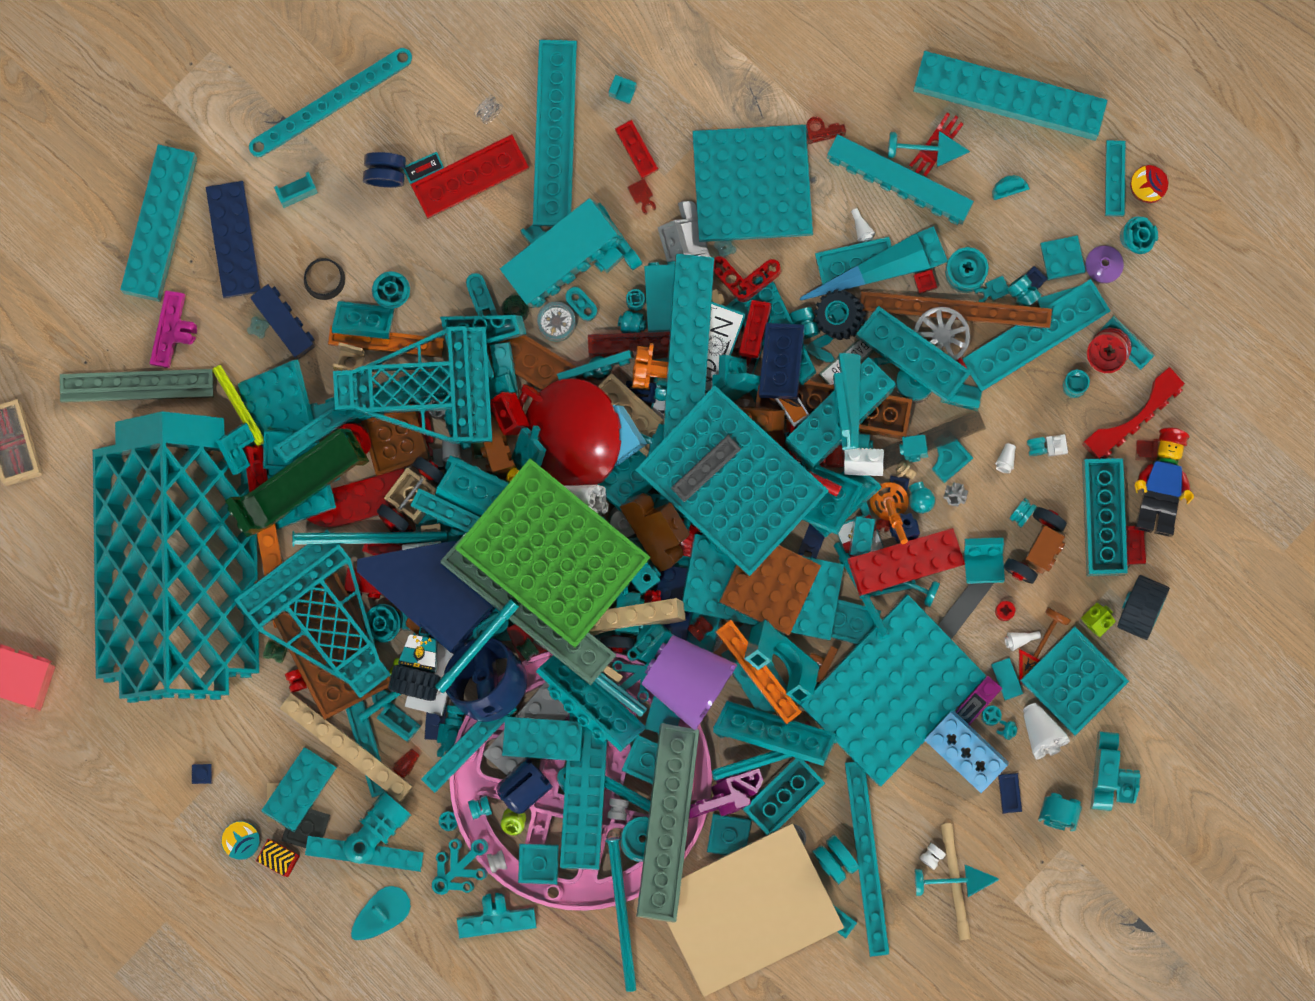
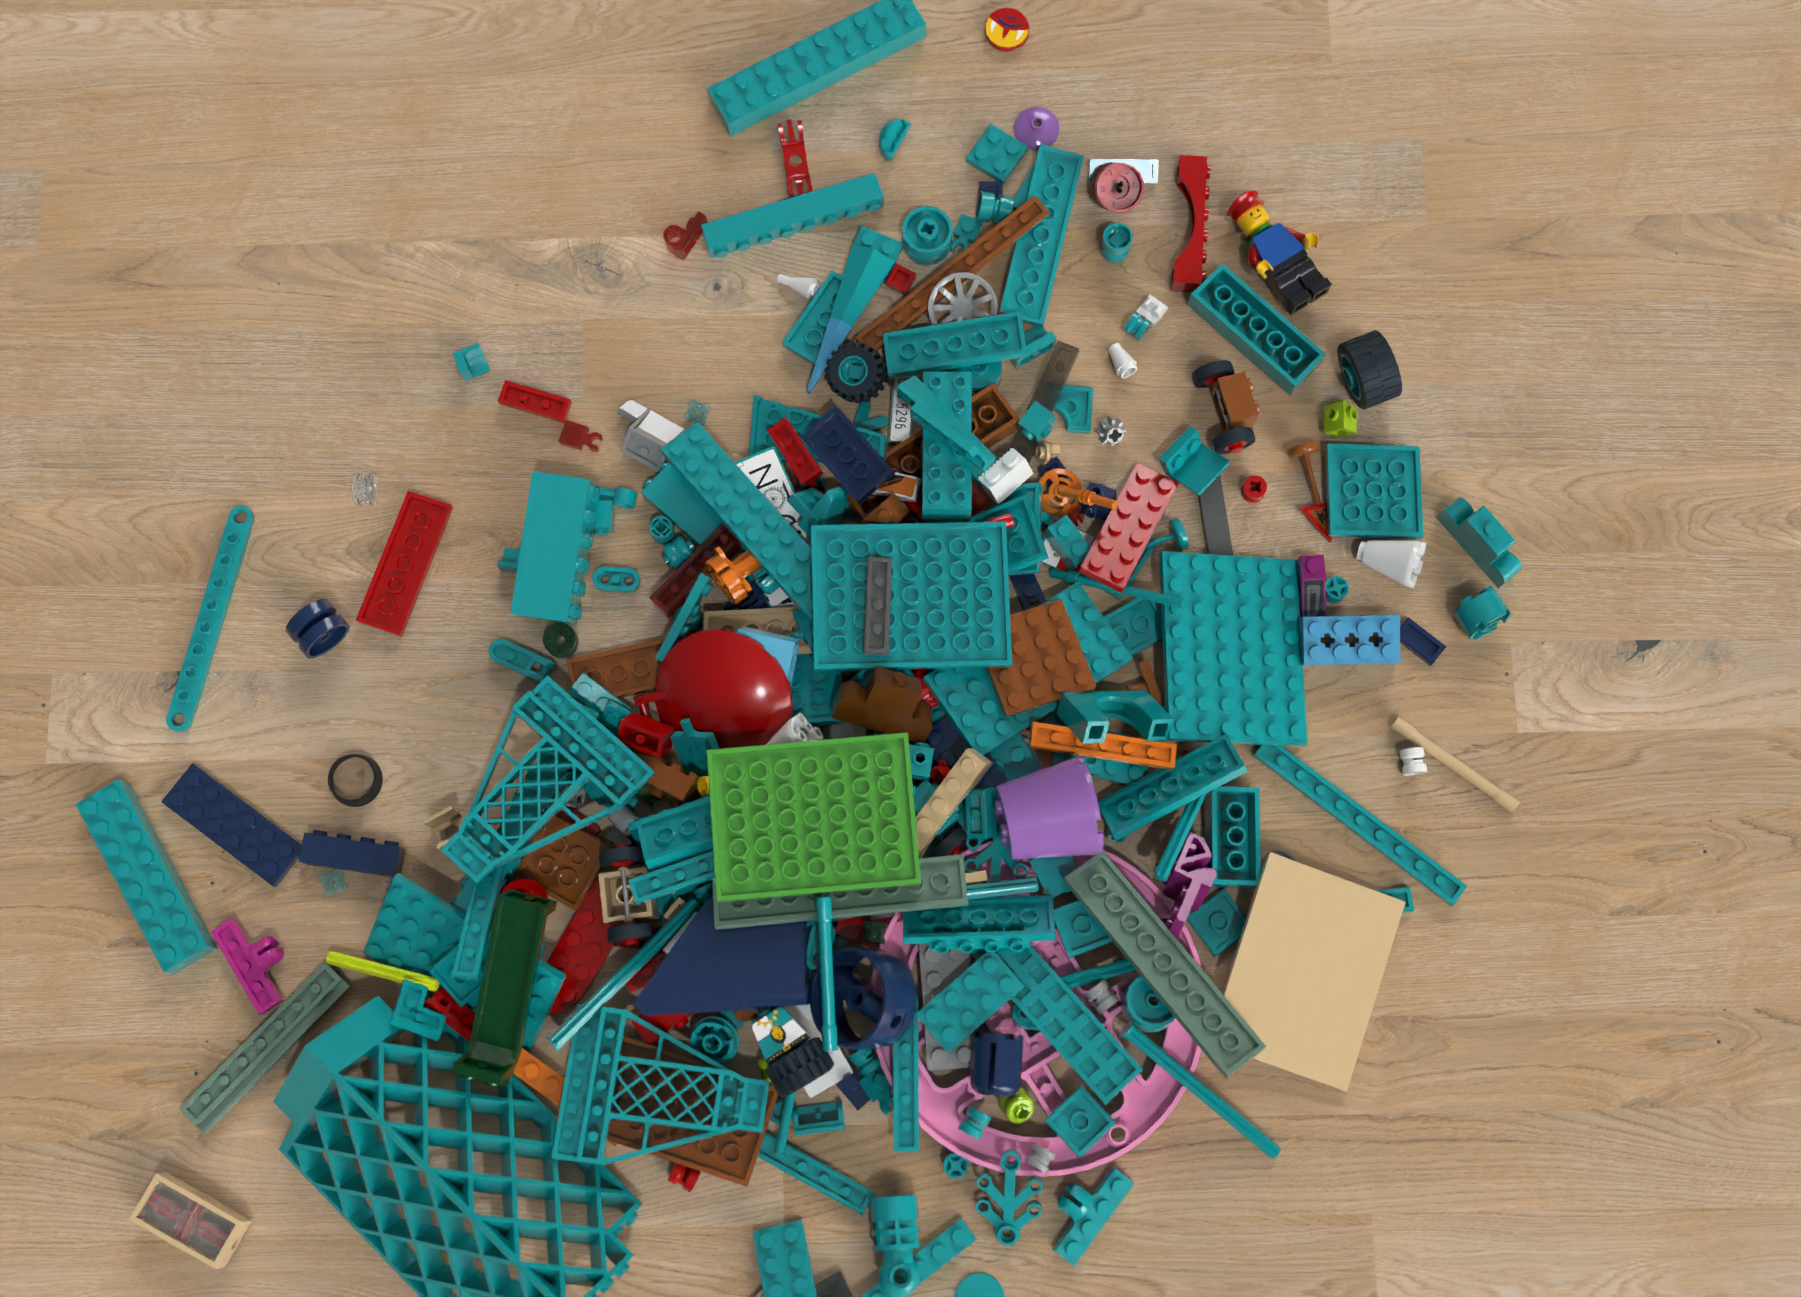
camera: 45 degrees left, 5 degrees down
(274, 651) = (642, 1169): clear green wheel -> none
(296, 191) = (253, 725): teal panel -> none
(346, 747) = (792, 1192): tan plate -> none
(362, 320) = (427, 781): teal plate -> none
(391, 290) = (427, 729): teal cone -> none
(394, 343) = (465, 782): orange plate -> none
(406, 763) = (863, 1150): clear red cone -> none
(423, 167) = (353, 595): black tile -> none
(497, 327) = (561, 666): teal wedge -> none
(554, 131) = (445, 454): teal plate -> none
(556, 321) = (608, 615): clear piece -> none
(700, 628) = (1011, 757): clear red wheel -> none
(746, 284) = (747, 423): red beam -> none
(752, 183) = (667, 336): teal plate -> none
(805, 317) = (828, 400): teal wheel -> none
(834, 860) = (1337, 847): teal wheel -> none
(921, 498) = (1084, 462): teal piece -> none
(947, 148) = (808, 153): teal piece -> none
(975, 880) = (1473, 745): teal piece -> none
(1007, 679) = (1310, 543): teal tile -> none
(1010, 729) = (1364, 587): teal plate -> none
(1016, 640) = (1288, 505): white cone -> none
(1023, 512) = (1183, 391): teal wheel -> none
(1115, 178) = (974, 49): teal plate -> none
(1128, 786) = (1518, 532): teal hand -> none
(1135, 546) = (1308, 327): red plate -> none
(1138, 235) = (1042, 74): teal cone -> none
(1146, 450) = (1231, 242): clear red panel -> none

